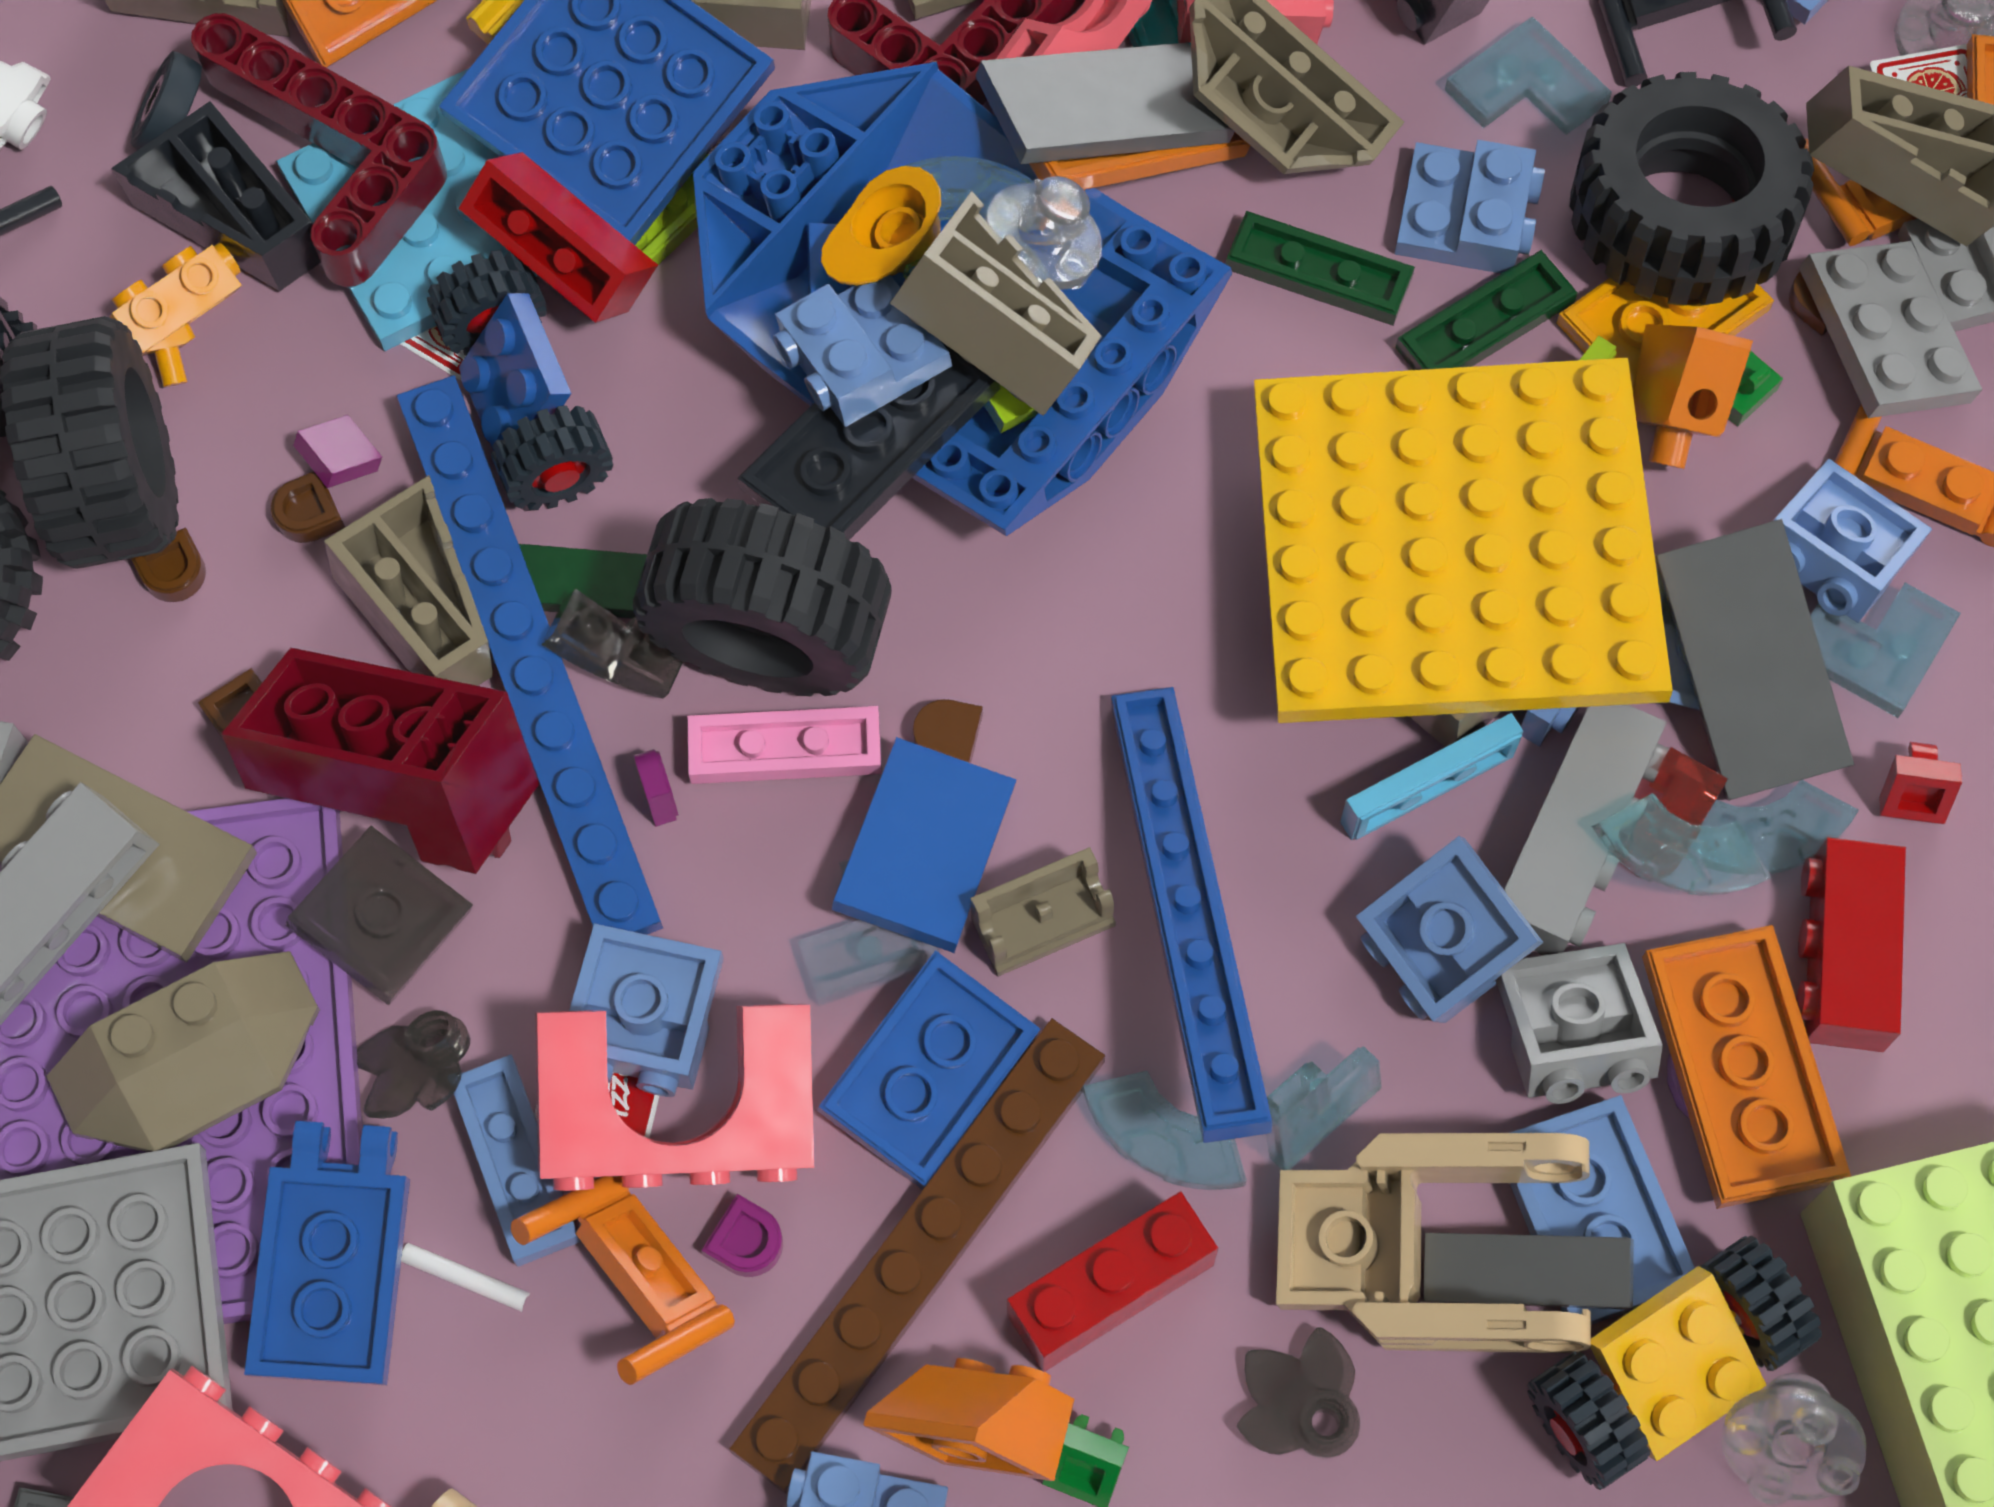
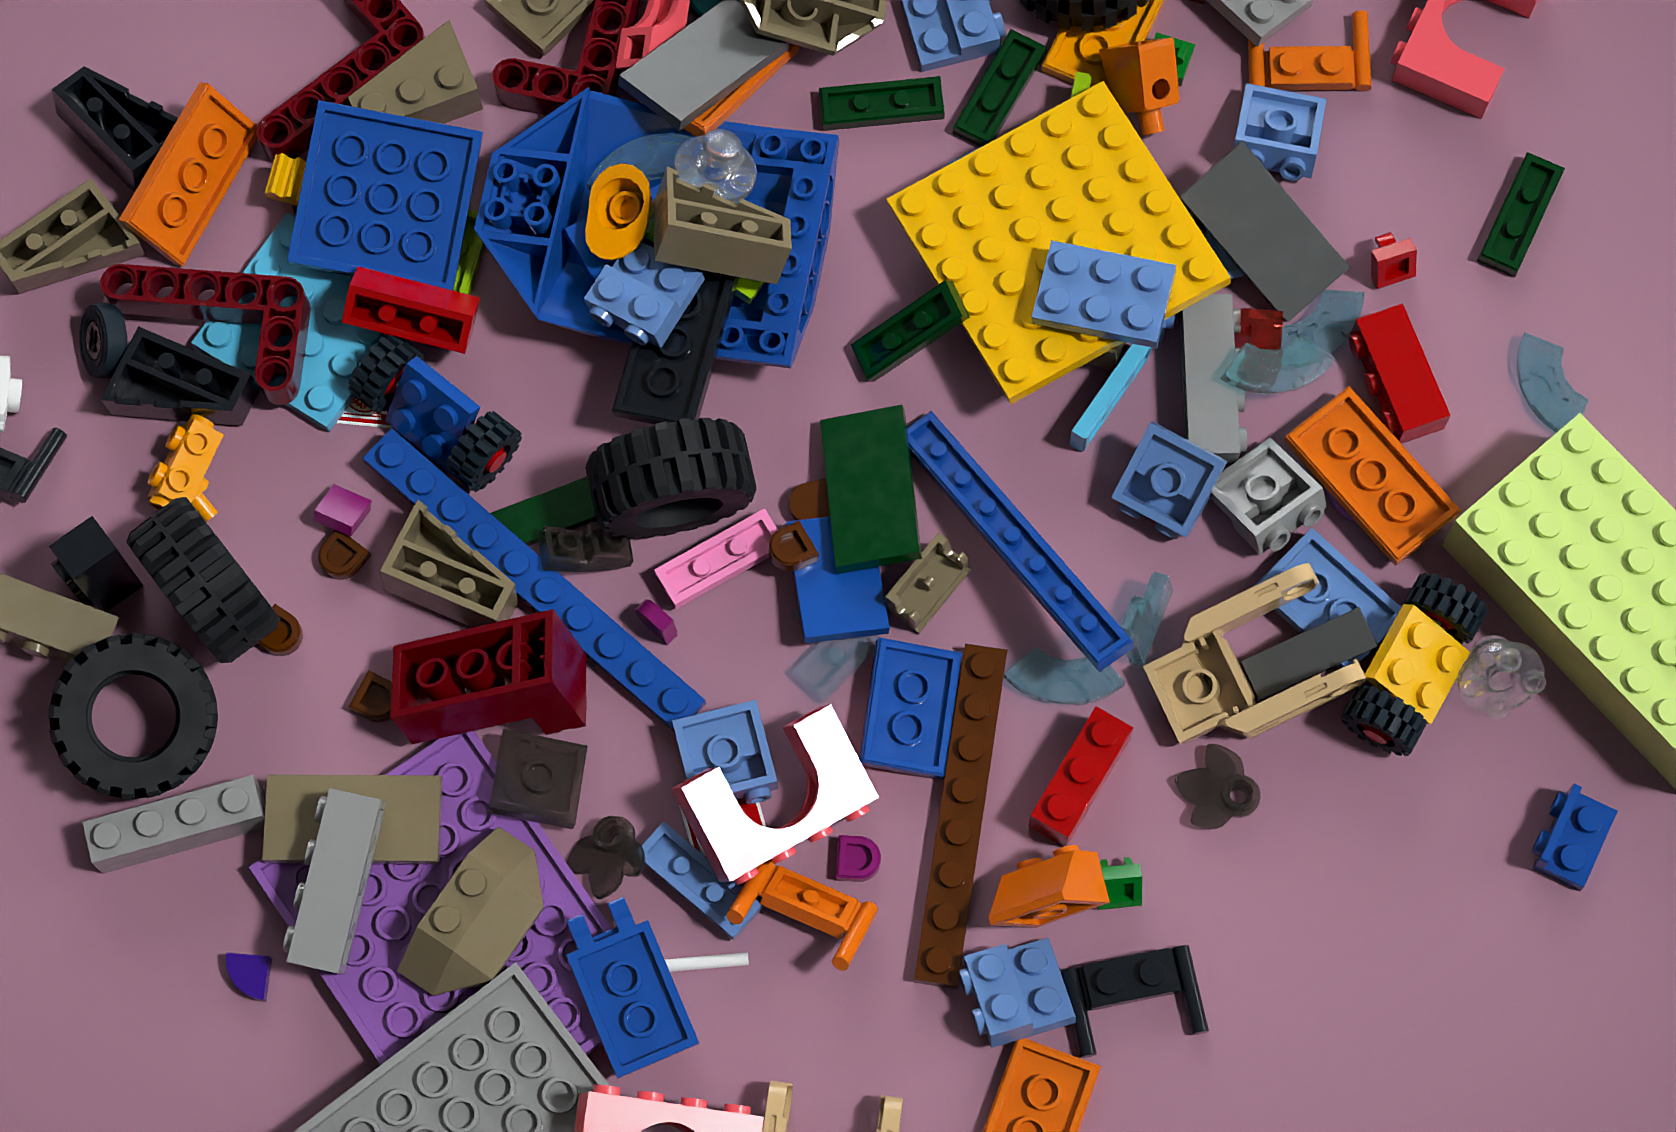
camera: 25 degrees left, 5 degrees up
(882, 774) = (792, 548): none -> reddish brown tile
(1031, 749) = (870, 489): none -> dark green tile
(1196, 564) = (910, 330): none -> dark green tile
(1481, 630) = (1104, 294): none -> medium blue plate
(1885, 661) = (1339, 191): clear light blue tile -> none

